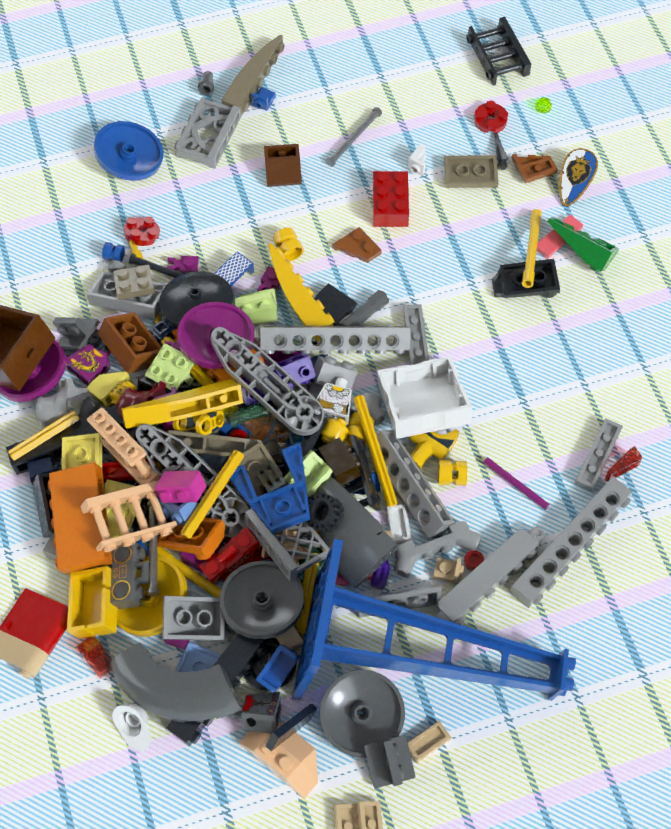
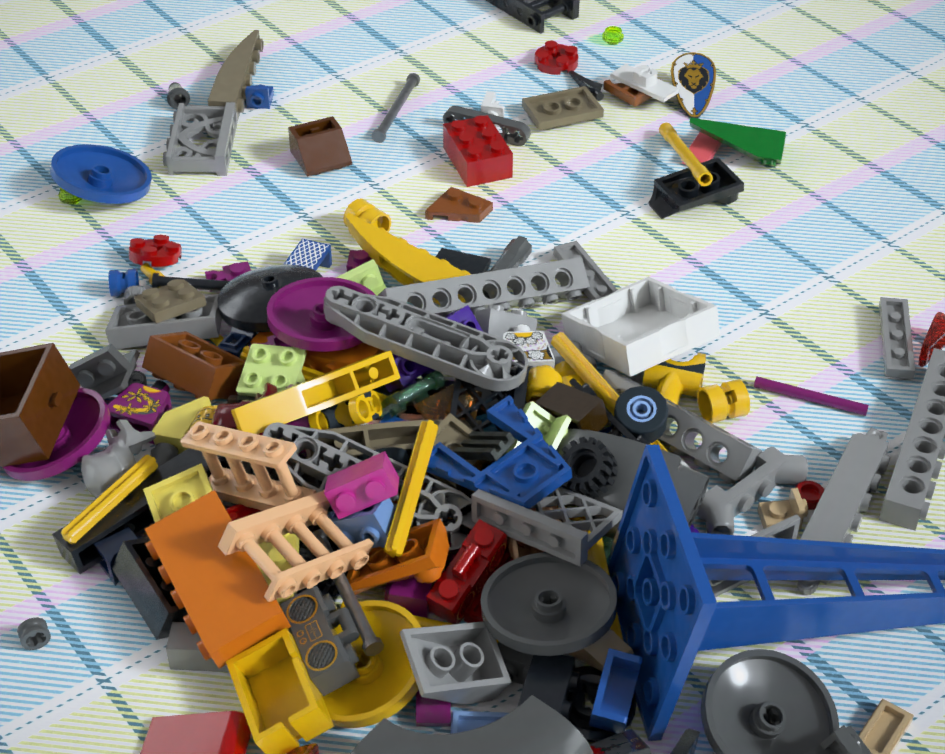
camera: 20 degrees left, 20 degrees down
(391, 475) = (642, 399): none -> black wheel
(415, 179) = (507, 125): none -> dark grey beam
(540, 165) = (645, 81): none -> white piece

